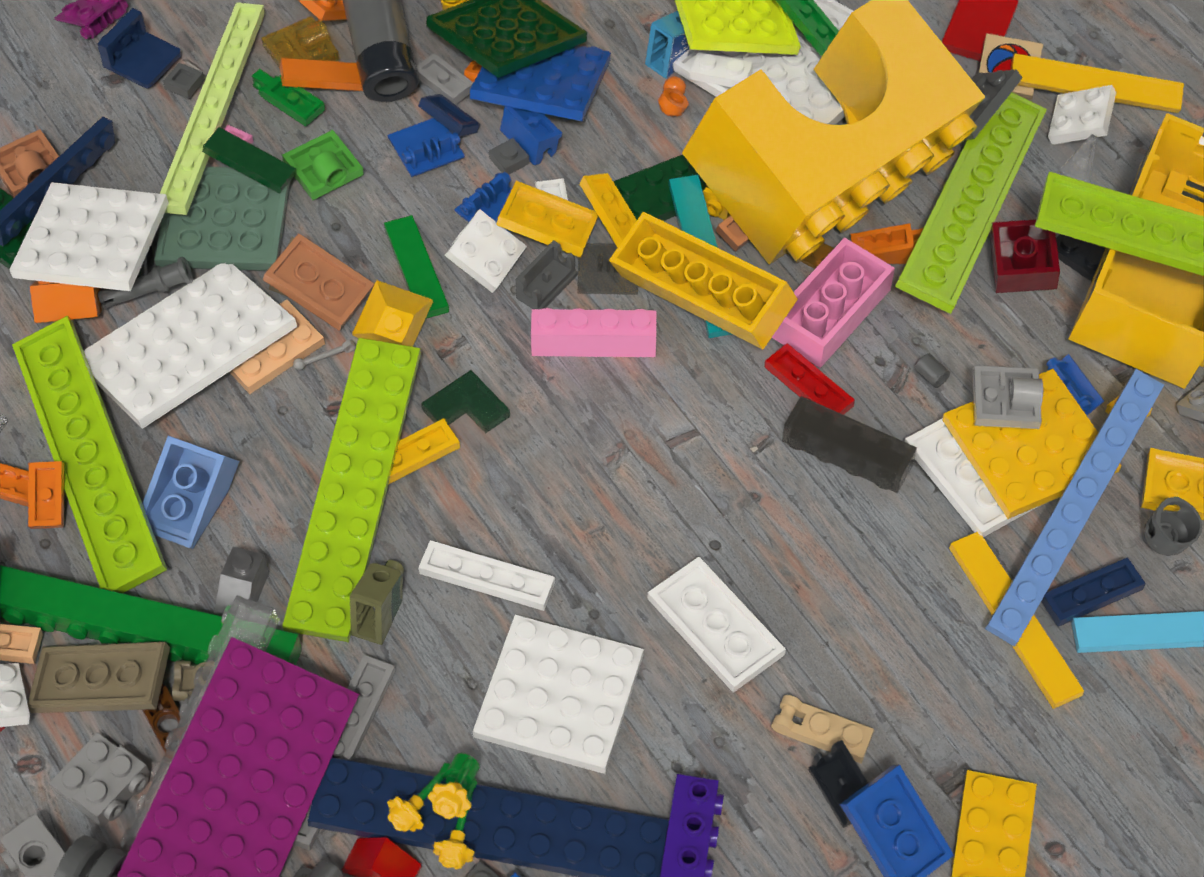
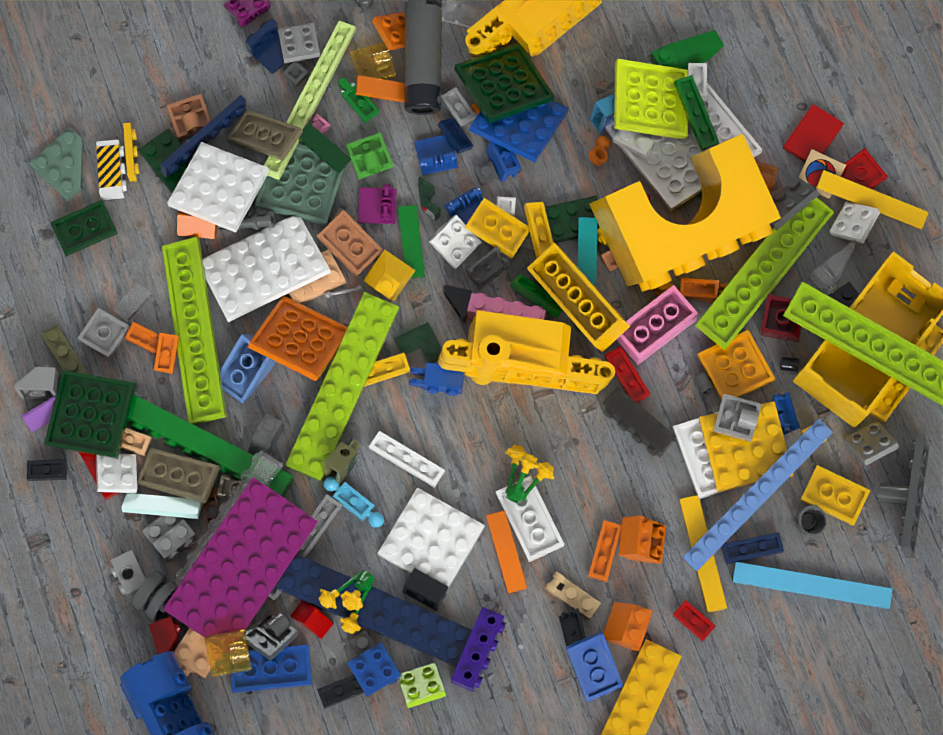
camera: 15 degrees right, 15 degrees up
(77, 733) = (161, 505): none -> light aqua tile
(151, 160) = (264, 134): none -> dark tan tile
(181, 38) = (299, 42): none -> light grey plate
(264, 426) = (298, 338): none -> orange plate
(351, 226) = (377, 205): none -> magenta hinge
(413, 659) = (354, 502): none -> medium azure plate
(424, 197) = (426, 192): none -> clear green slope
(509, 445) = (438, 379): none -> blue hinge
(511, 329) = (458, 299): none -> black slope
(569, 771) = (425, 589): none -> black hinge
(611, 291) = (536, 295): none -> green plate
(638, 374) = (523, 353): none -> yellow piece
(683, 583) = (545, 470): none -> plant
(691, 681) = (506, 551): none -> orange slope
(855, 647) = (605, 551): none -> orange plate
(910, 615) = (642, 539): none -> orange slope
(933, 752) = (627, 625): none -> orange slope
(974, 334) = (737, 368): none -> light orange plate
(1037, 723) = (694, 620): none -> red plate
(1054, 319) = (789, 364): none -> black hinge
(1072, 46) = (864, 170): none -> red plate

